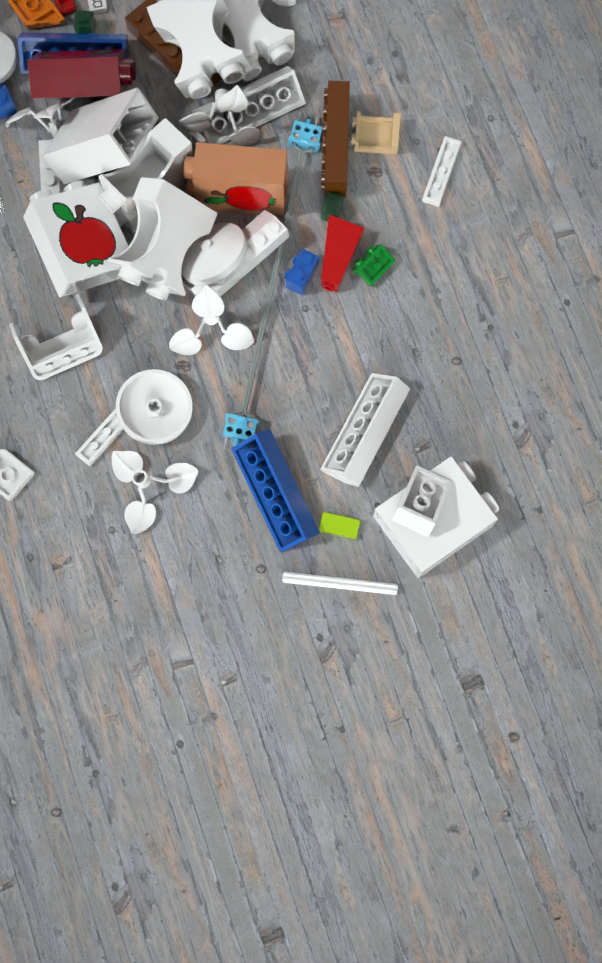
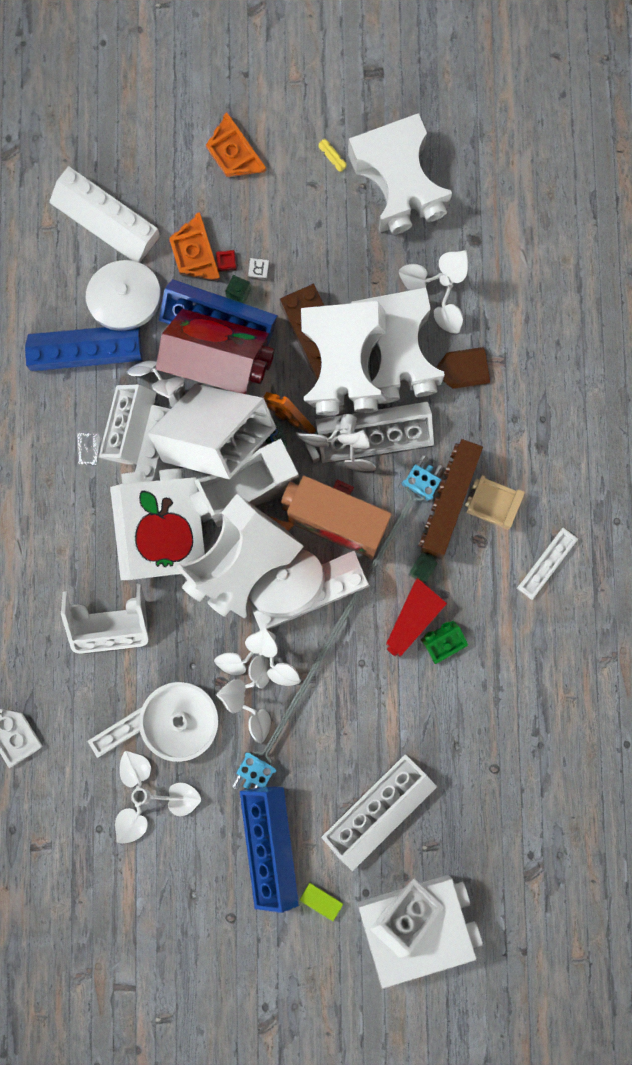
camera: 20 degrees right, 5 degrees up
(20, 166) = (127, 423): none -> white slope
(164, 105) = (287, 410): none -> orange wing
(196, 355) = (233, 697): none -> white plant
(302, 271) = (366, 631): blue brick -> none
(312, 31) = (465, 368): none -> reddish brown tile
(340, 583) = (302, 960): white axle -> none

